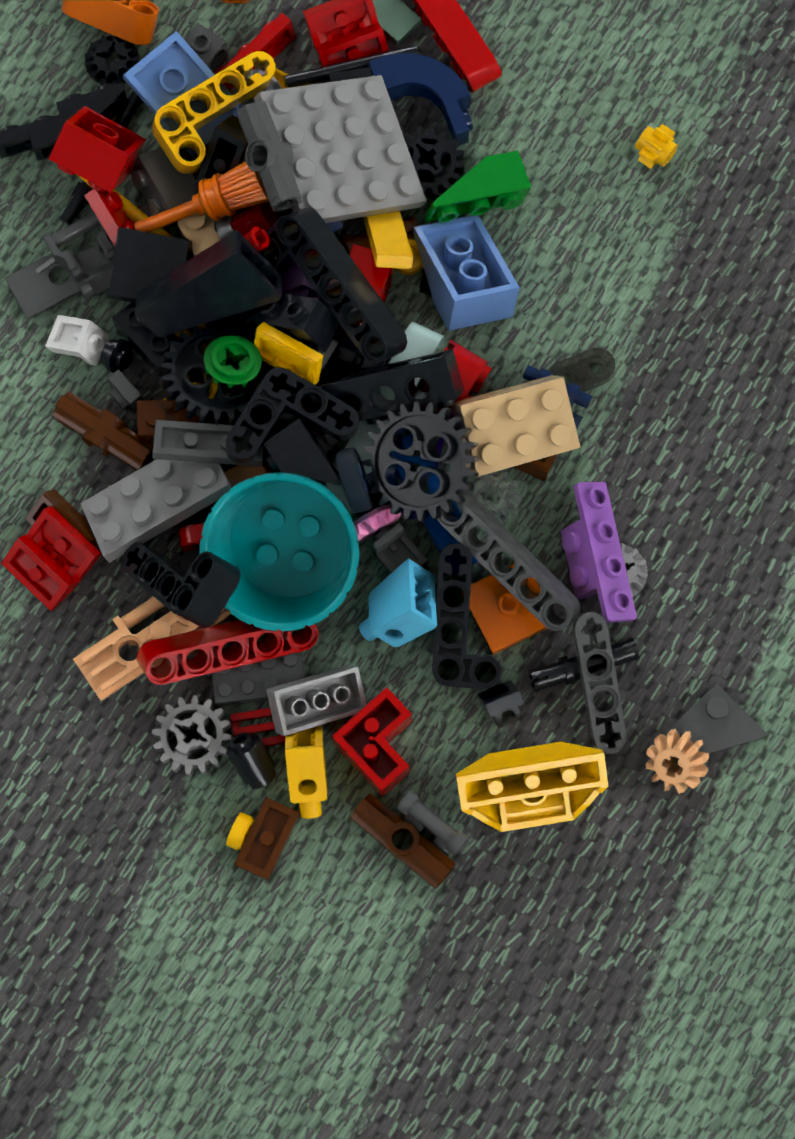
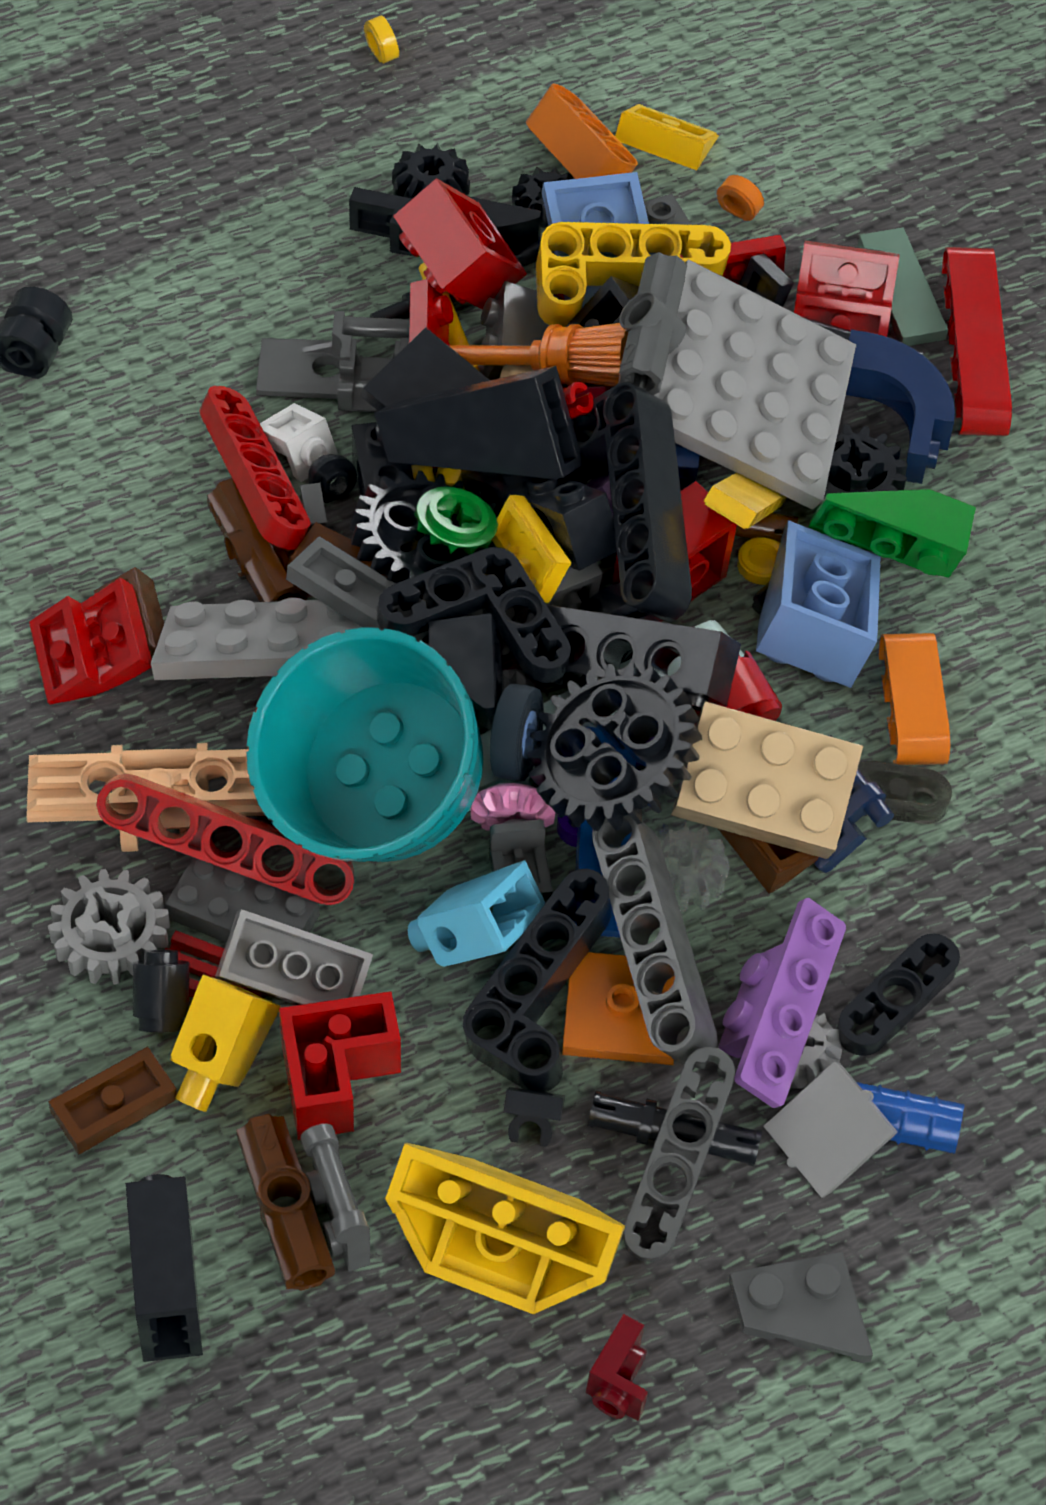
camera: 25 degrees right, 20 degrees down
(33, 82) = (420, 168): none -> black gear
(112, 412) = (254, 468): none -> red beam
(191, 595) = (227, 730): black beam -> none
(239, 831) = (83, 1064): yellow tile -> none
(292, 54) = (766, 279): none -> black plate
(369, 923) = (163, 1268): none -> black brick
(556, 303) = (916, 698): none -> orange beam
(638, 821) = (615, 1369): none -> dark red bracket
(664, 757) = (722, 1310): light nougat gear -> none
(669, 482) = (901, 973): none -> black beam
(669, 615) = (830, 1129): none -> light grey piece
(703, 582) = (919, 1118): none -> blue axle

